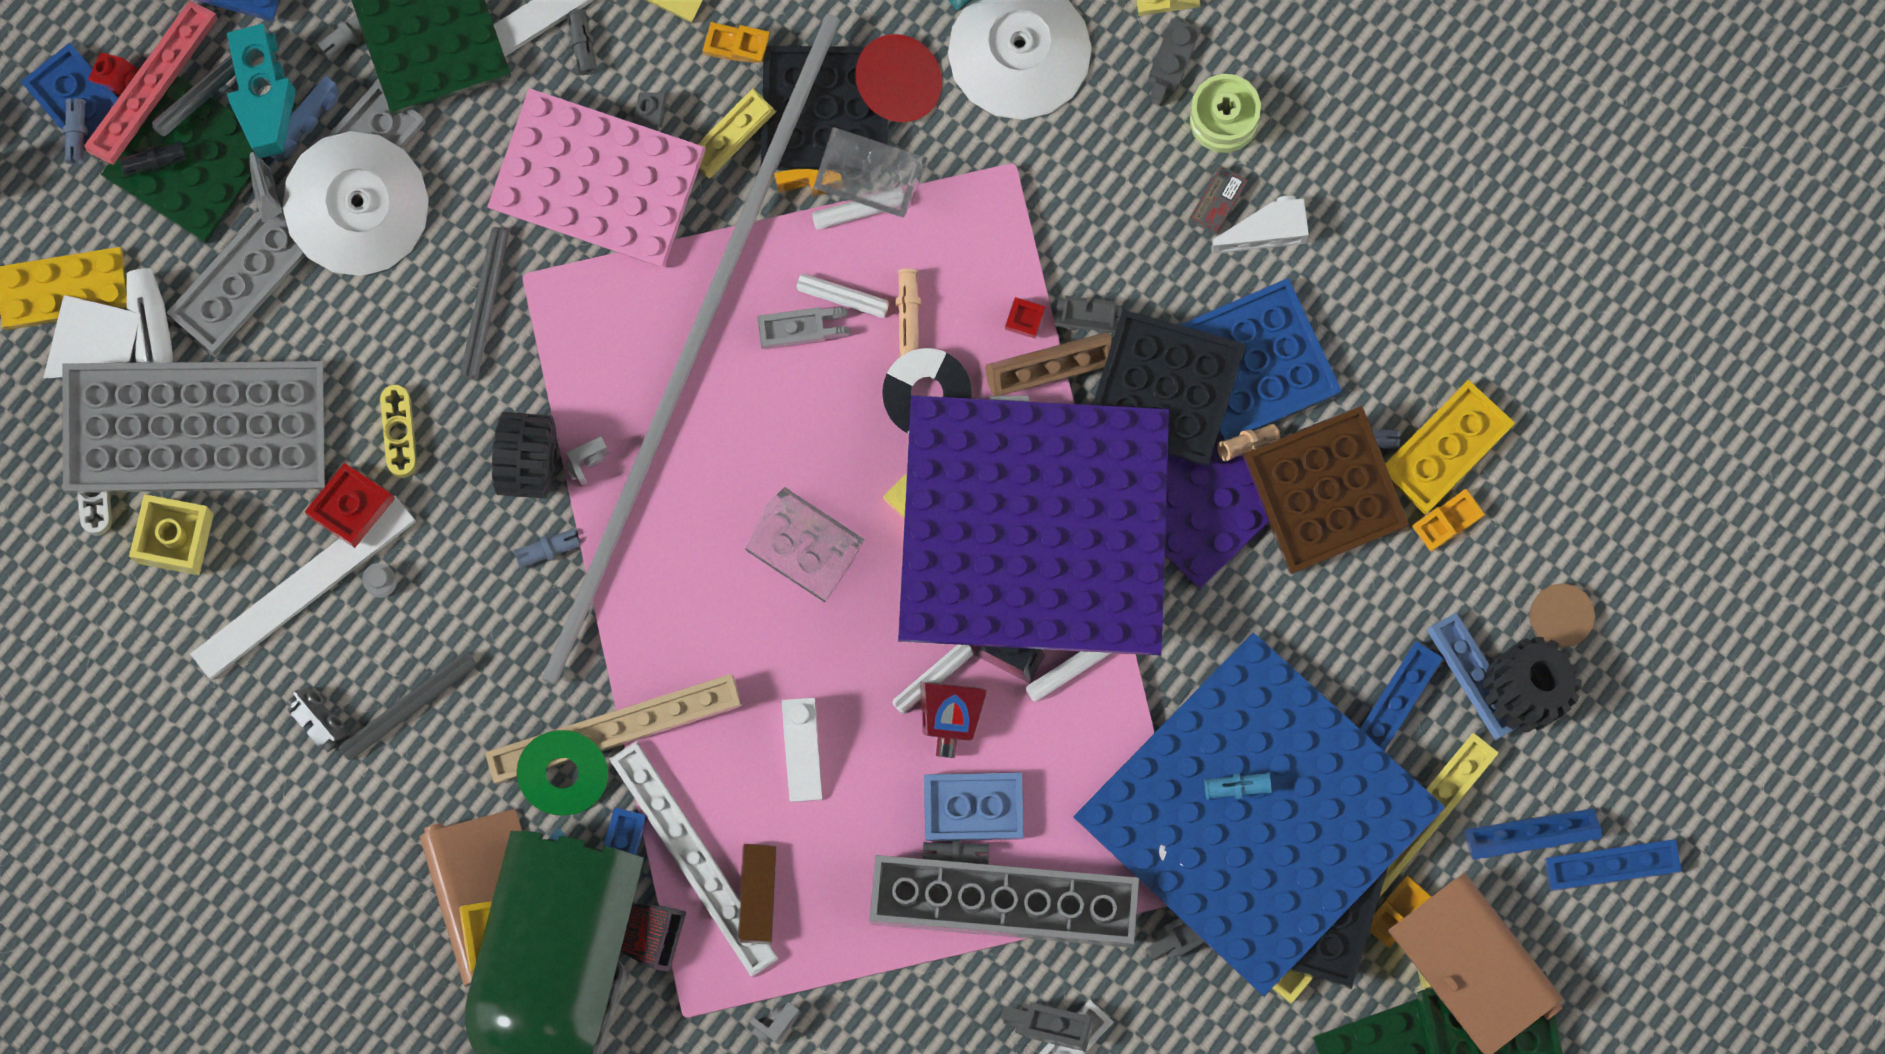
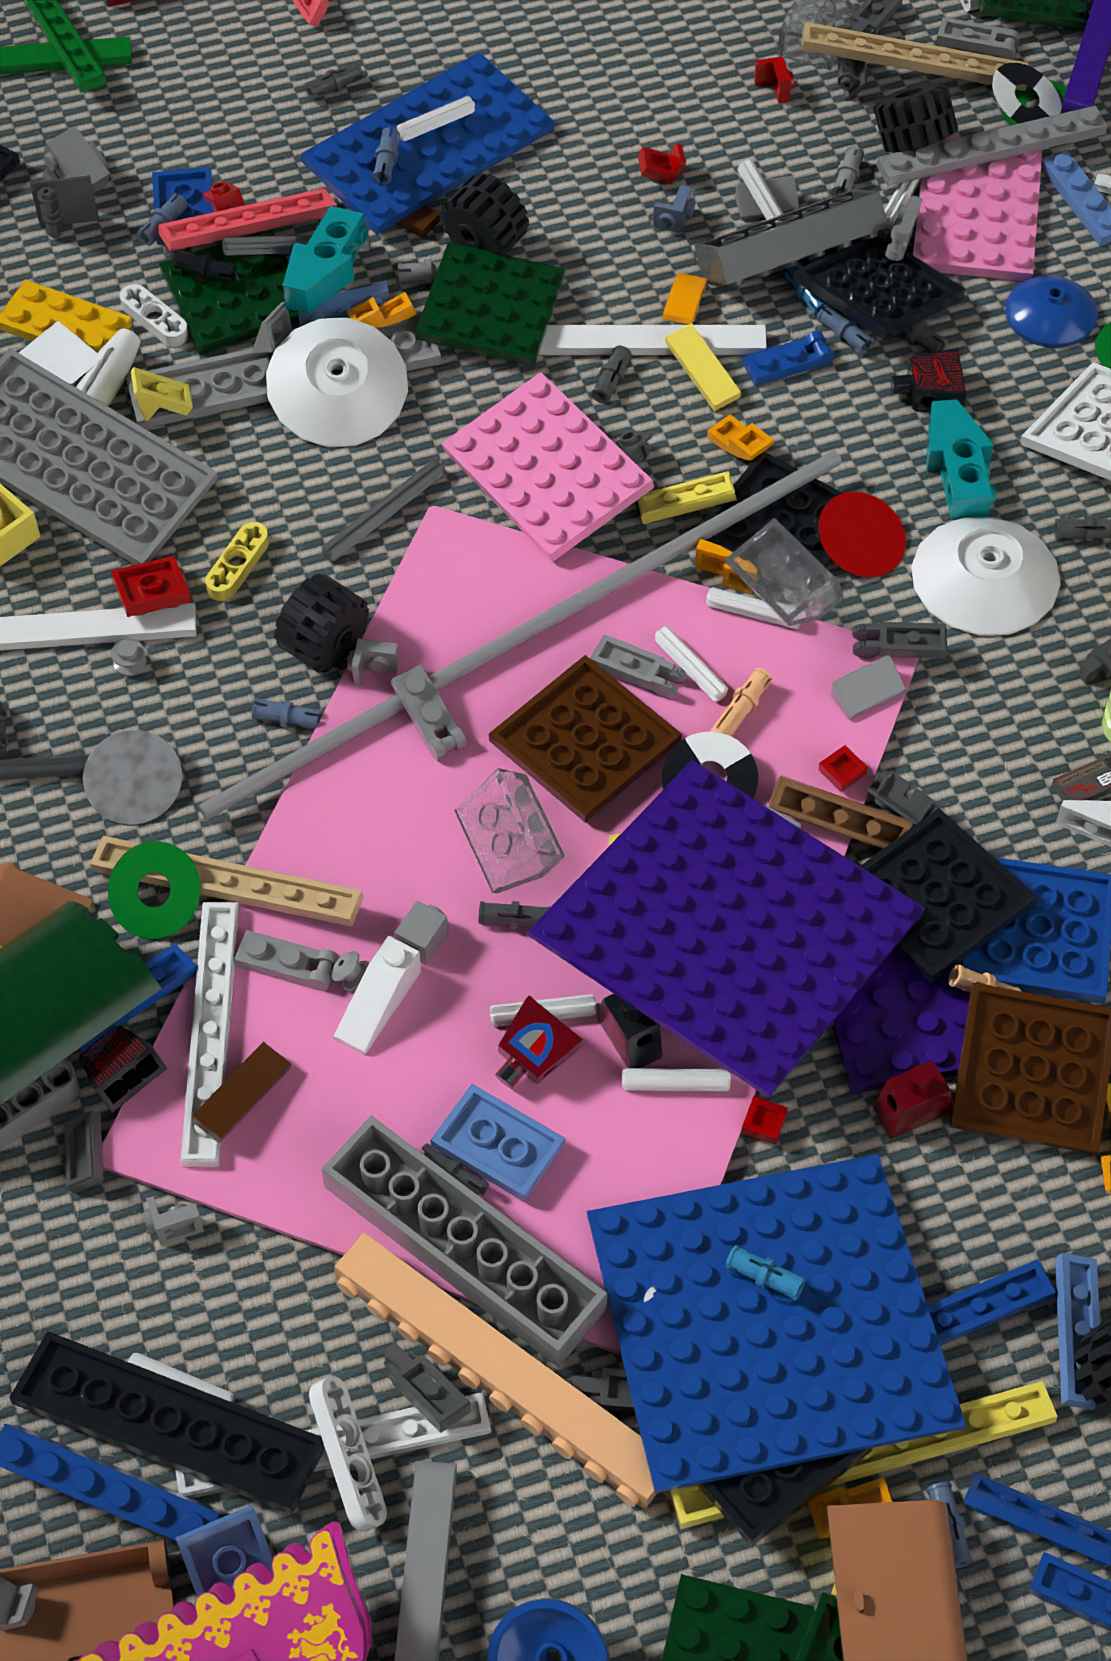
camera: 30 degrees right, 20 degrees down
(117, 217) = (158, 327): none -> white beam
(221, 318) = (159, 391): none -> light yellow slope
(341, 114) = (386, 314): none -> light orange slope
(466, 685) = (132, 777): none -> flat silver sticker
(666, 478) = (428, 711): none -> light grey plate
(669, 1014) = (83, 1151): none -> dark grey tile
(708, 764) = (285, 960): none -> light grey plate
(767, 742) = (350, 970): none -> light grey wheel
(798, 673) = (423, 930): none -> light grey brick
(805, 420) = (585, 738): none -> reddish brown plate
(857, 612) = (490, 914): none -> dark grey pin
(997, 228) = (867, 687): none -> light grey slope
(998, 165) = (901, 640): none -> dark grey hinge
(1089, 976) = (498, 1367): none -> light nougat brick
(1155, 664) = (764, 1120): none -> red plate
(1252, 573) = (919, 1098): none -> dark red torso
(1457, 865) = (943, 1492): none -> sand blue pin

